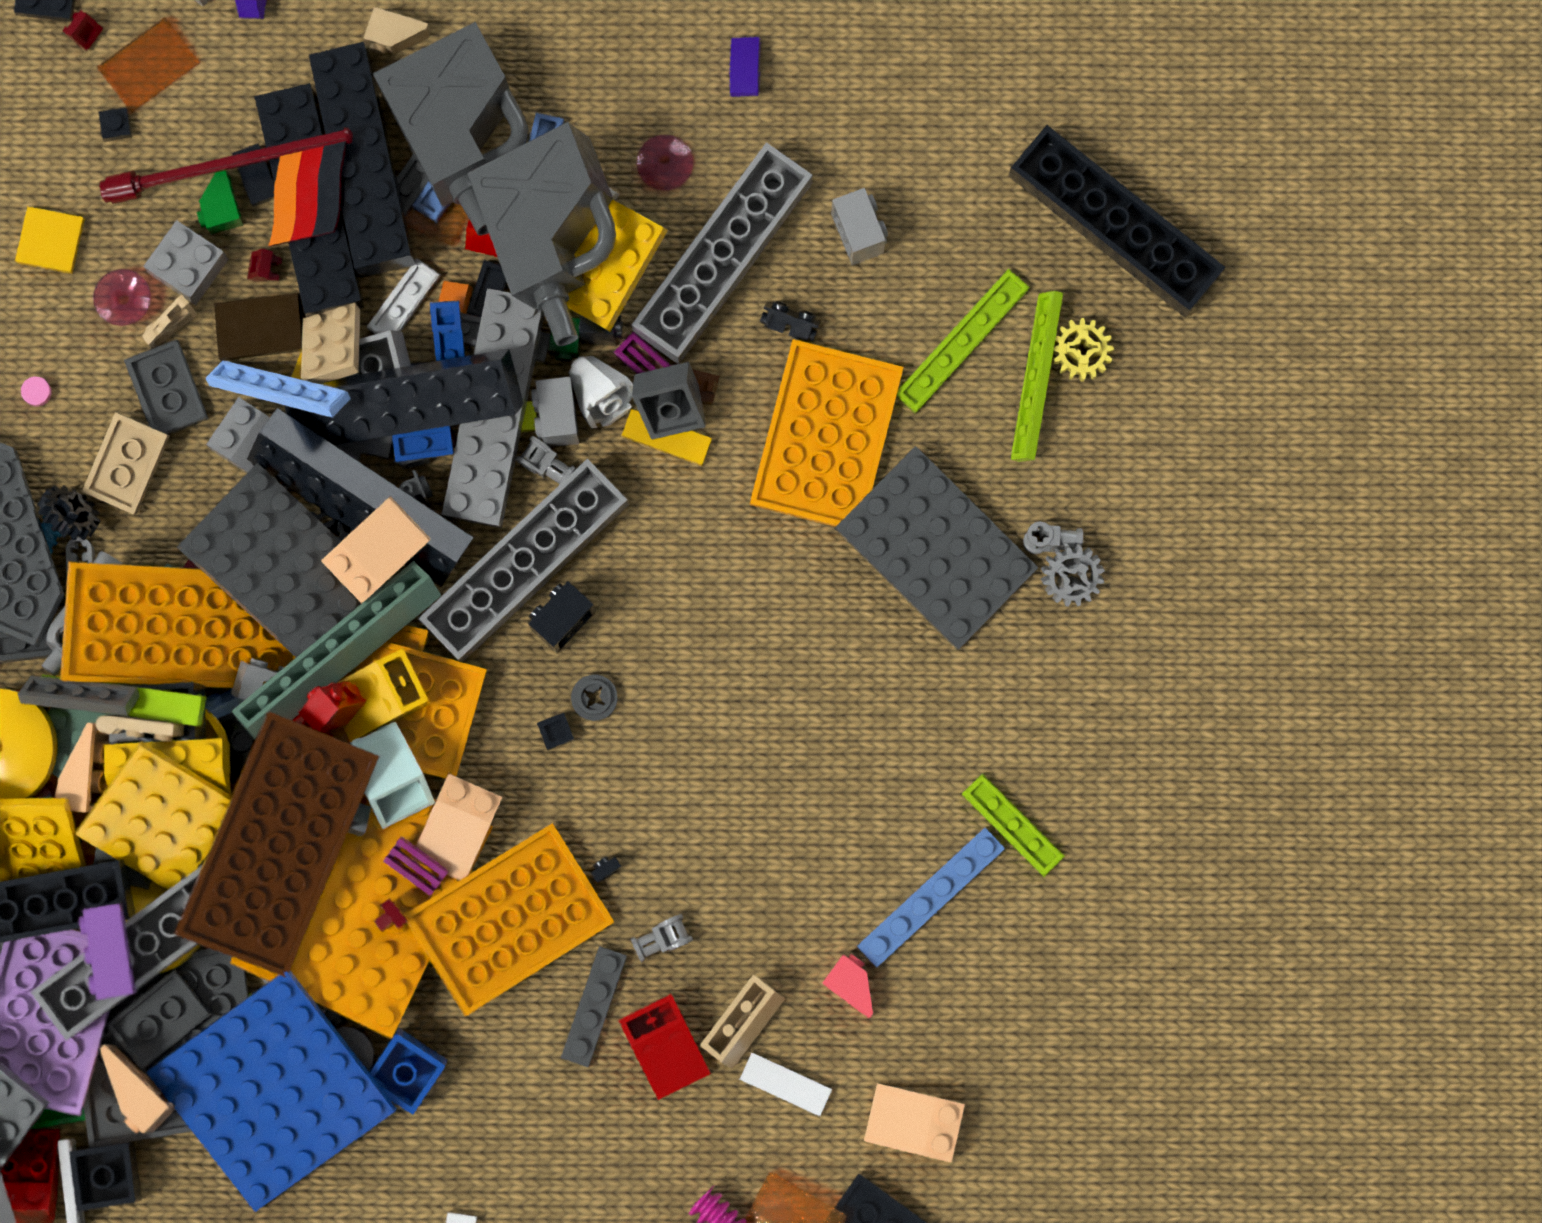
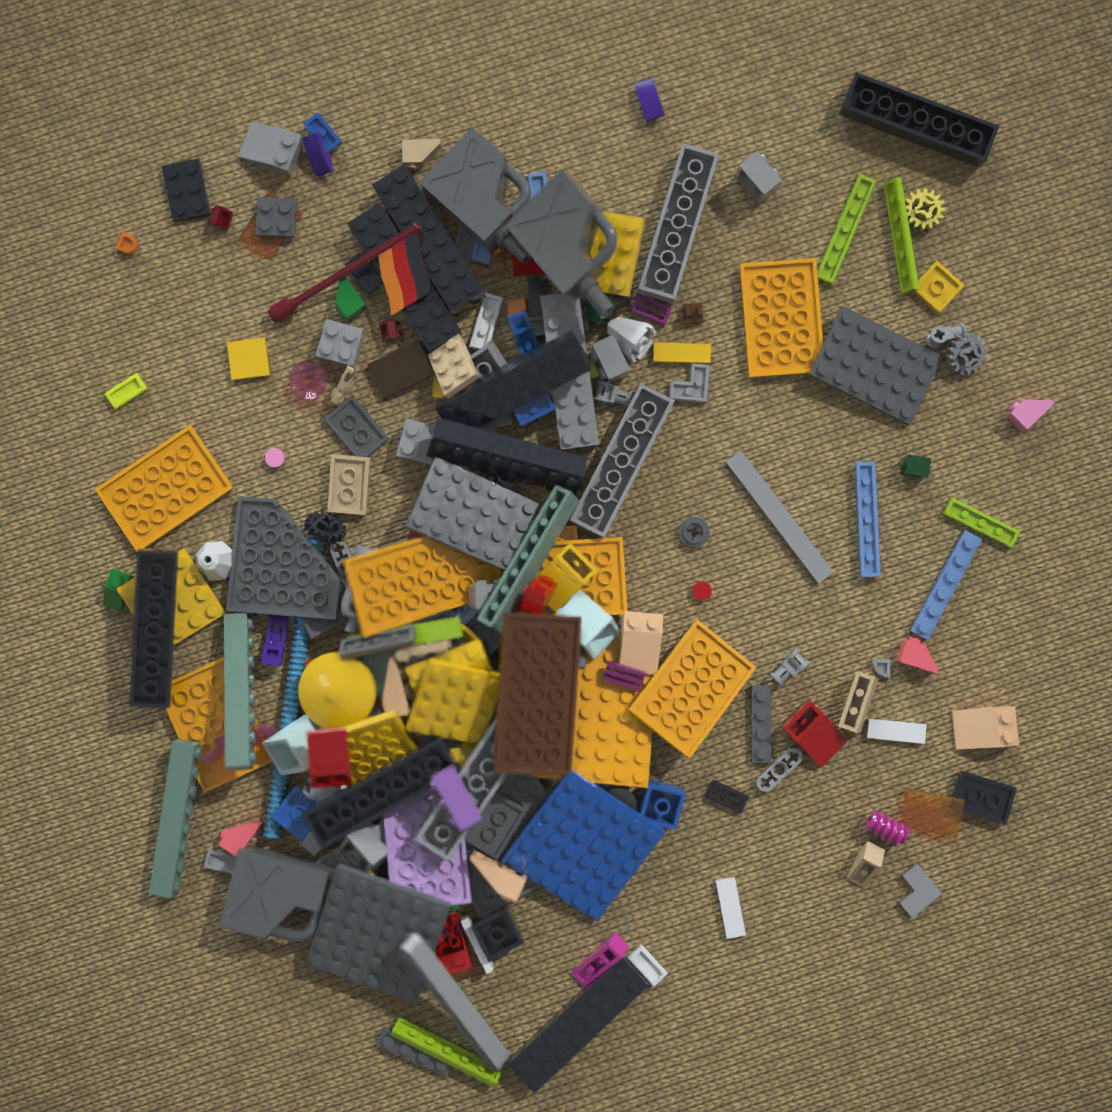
camera: 20 degrees left, 5 degrees up
(115, 124) = (263, 271): black plate -> none
(160, 55) = (276, 217): none -> dark grey plate
(278, 388) = (431, 404): light blue tile -> none
(376, 549) = (531, 486): light nougat slope -> none
(391, 916) = (621, 712): dark red tile -> none
(417, 488) = (540, 437): dark grey hinge -> none
(525, 1112) = (712, 789): none -> black tile
(555, 731) = (678, 561): black plate -> none
(561, 616) = (658, 489): black brick -> none
(572, 1082) = (786, 756): none -> light grey beam
(575, 786) = (701, 590): none -> red tile
(605, 868) = (739, 636): black plate -> none
(665, 496) = (696, 389): none -> light grey tile
(669, 175) = (615, 187): clear pink dish -> none
(669, 400) = (678, 328): dark grey slope -> none
(724, 718) = (779, 517): none -> light grey tile
(797, 984) = (882, 667): none -> light grey tile
(800, 322) = (741, 252): black hinge -> none
(849, 764) = (867, 519): none -> medium blue plate
(943, 711) = (915, 466): none -> dark green brick
(1066, 467) = (938, 287): none -> yellow tile
(1133, 688) = (1027, 412): none -> bright pink slope

